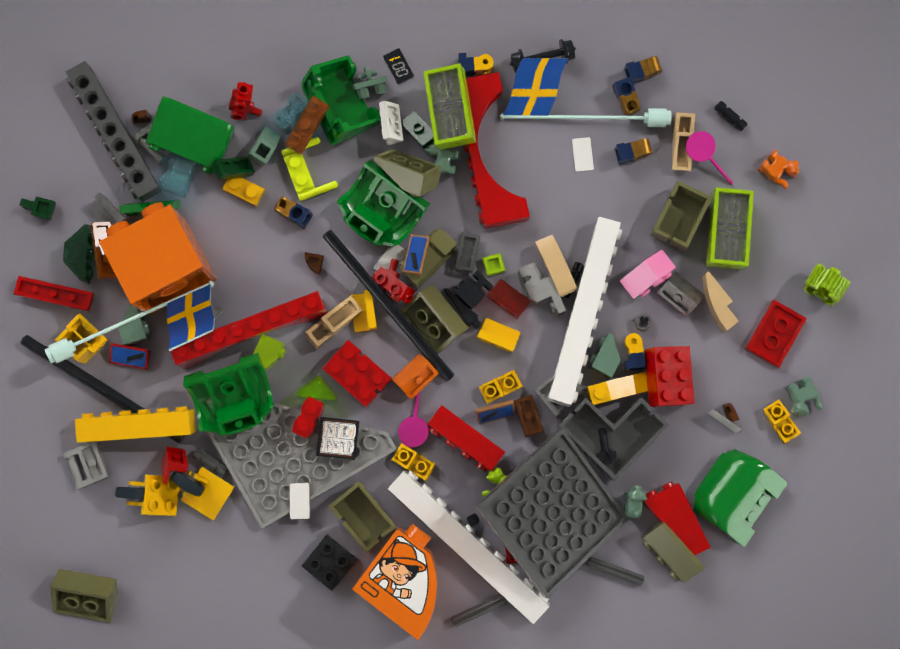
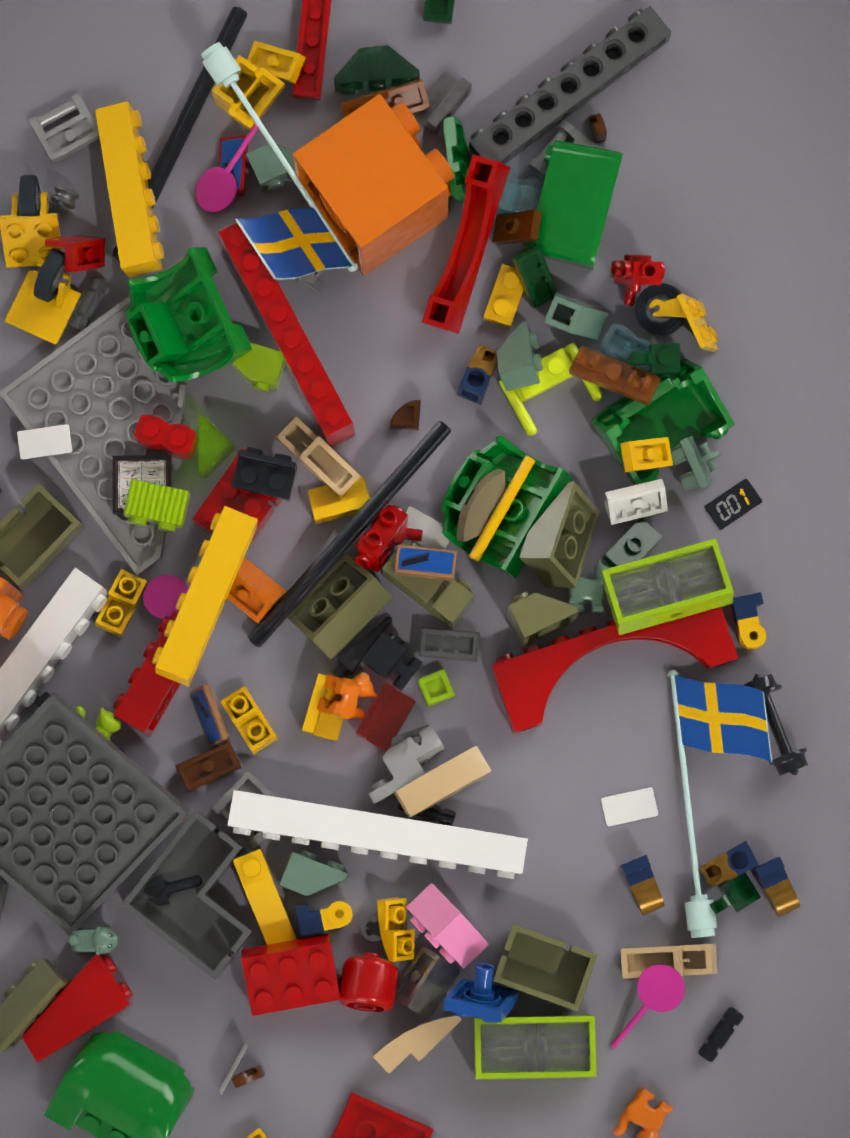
camera: 85 degrees right, 0 degrees up
(63, 316) = (278, 61): none -> yellow plate
(134, 470) = (64, 197): none -> flat silver bush
(142, 367) = (218, 186): none -> dark pink piece
(187, 196) = (482, 197): none -> red arch
(200, 174) = (517, 227): none -> reddish brown plate
(268, 89) = (664, 310): none -> plate
(289, 184) = (518, 359): none -> sand green slope
(301, 92) = (661, 358): none -> dark green plate
(343, 354) = (264, 474): none -> black bracket
(353, 428) = (157, 505): none -> lime brick
(361, 110) = (646, 454): none -> yellow plate
(383, 206) = (501, 508): none -> yellow bar
(387, 224) = (484, 499): none -> dark tan tile
(420, 399) = (206, 596): none -> yellow brick
(459, 192) = (538, 616): none -> olive slope
(493, 320) = (345, 695): none -> orange animal
(647, 93) = (739, 893): none -> dark green plate
(651, 307) = (396, 938): none -> yellow slope
(679, 327) = (368, 983): none -> red head
(697, 256) = (480, 997): none -> blue plate

